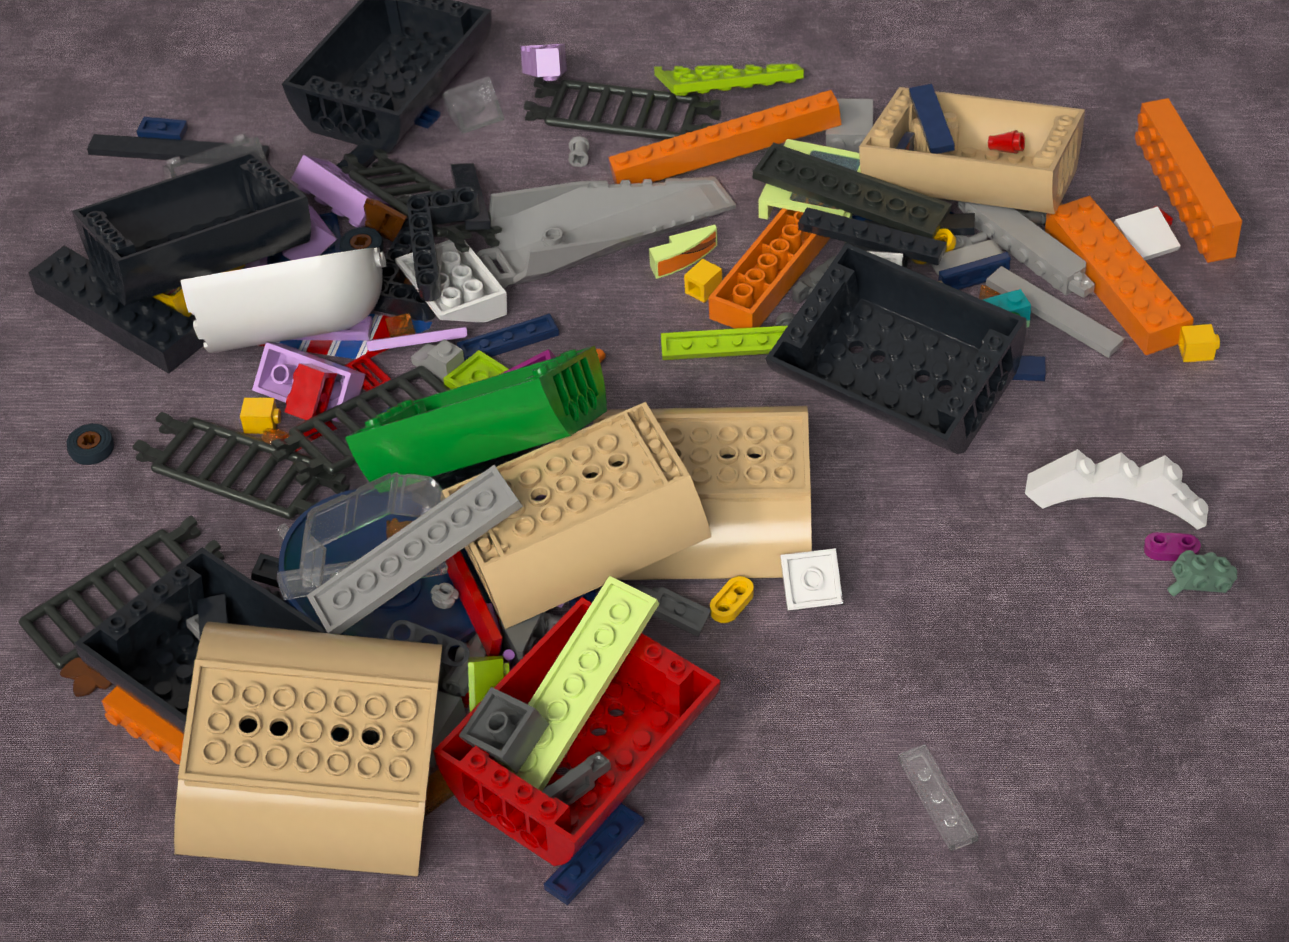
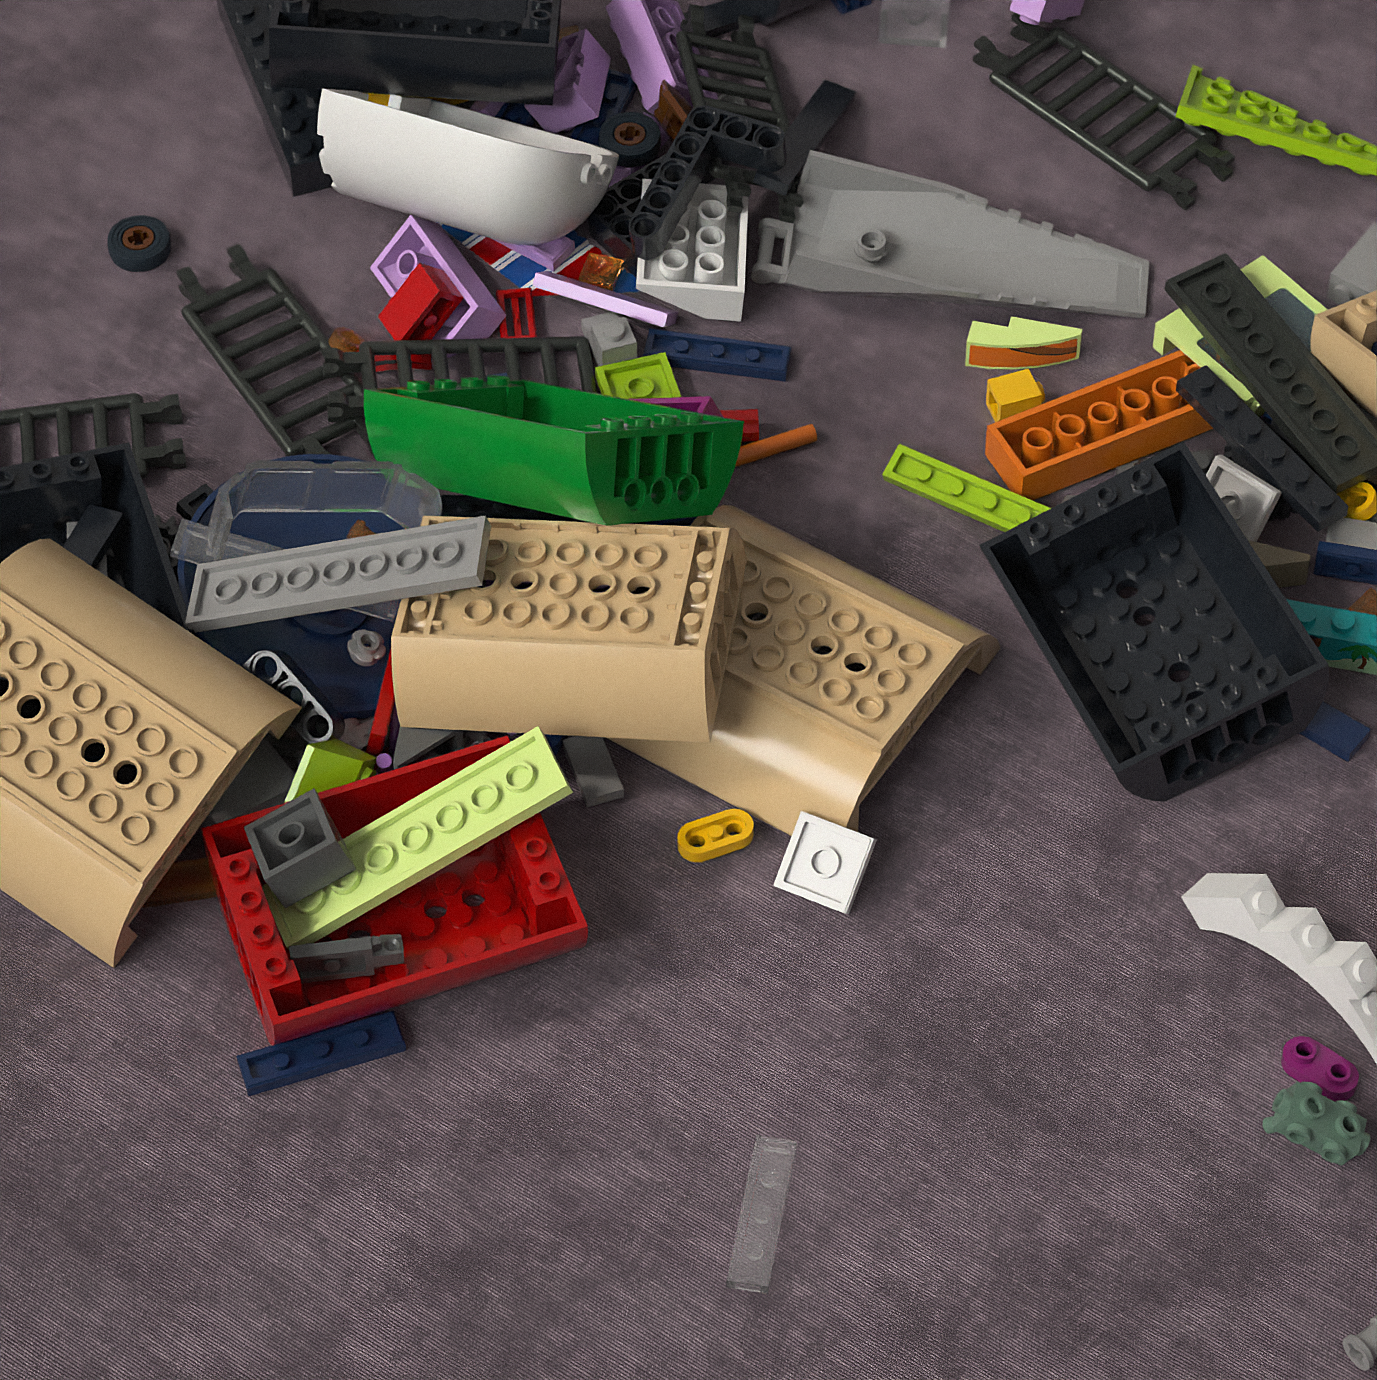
camera: 30 degrees right, 5 degrees up
(259, 415) = (348, 305): yellow brick -> none
(578, 155) = (1003, 135): light grey bush -> none
(678, 609) = (634, 809): dark grey hinge -> none
(727, 139) = (1192, 218): orange brick -> none

